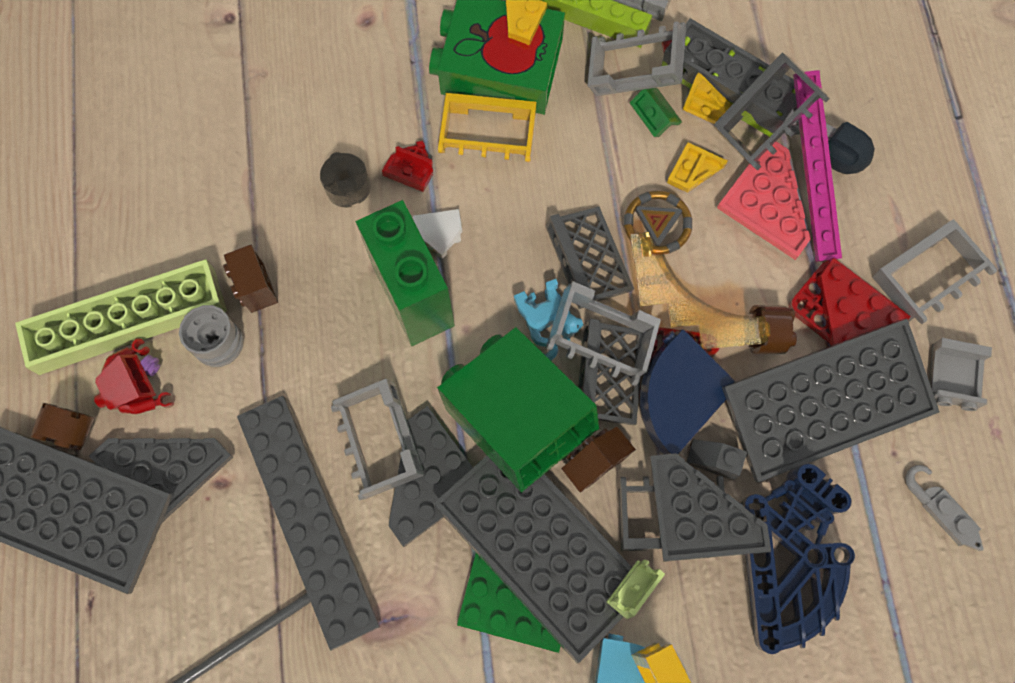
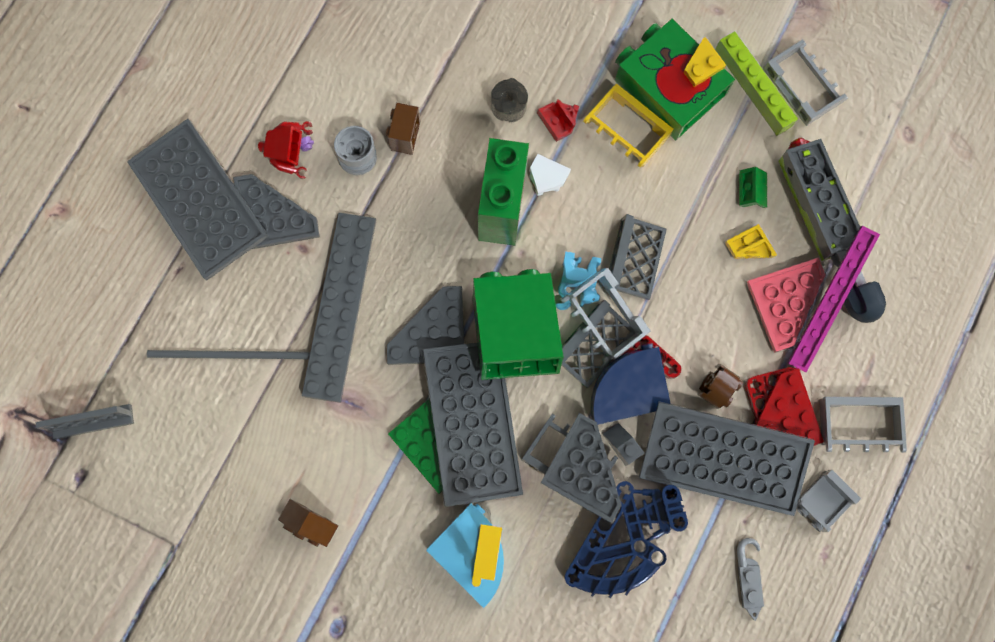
camera: 30 degrees right, 5 degrees up
(62, 426) = (229, 148): reddish brown brick -> none
(117, 317) = (307, 99): yellowish green brick -> none
(409, 454) = (428, 310): light grey hinge -> none
(597, 458) = (546, 391): reddish brown brick -> none
(635, 589) = (511, 487): yellowish green hinge -> none
(659, 220) = (697, 265): piece -> none
(660, 76) = (767, 166): light grey hinge -> none
(660, 285) = (667, 309): clear yellow arch -> none
(705, 100) = (792, 205): yellow wing -> none
(734, 113) = (802, 226): dark grey hinge -> none

